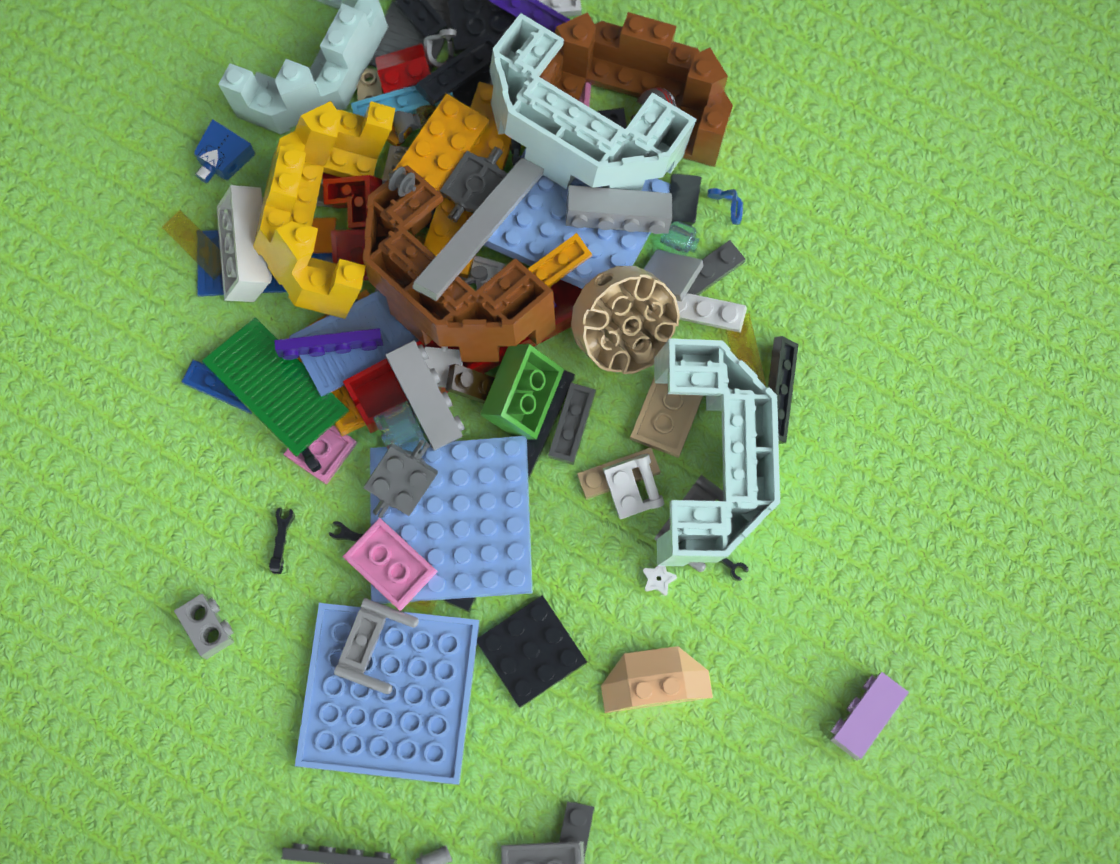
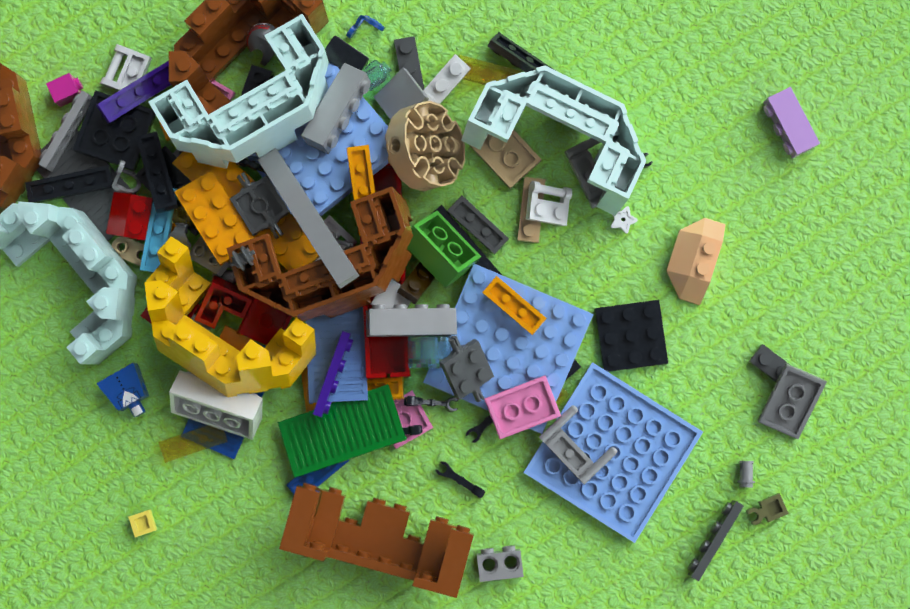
camera: 65 degrees left, 10 degrees up
(88, 236) = (142, 523): none -> light yellow plate
(167, 480) = (379, 541): none -> dark orange brick
(344, 448) = (416, 401): none -> black piece
(497, 498) = (514, 305): none -> light orange plate

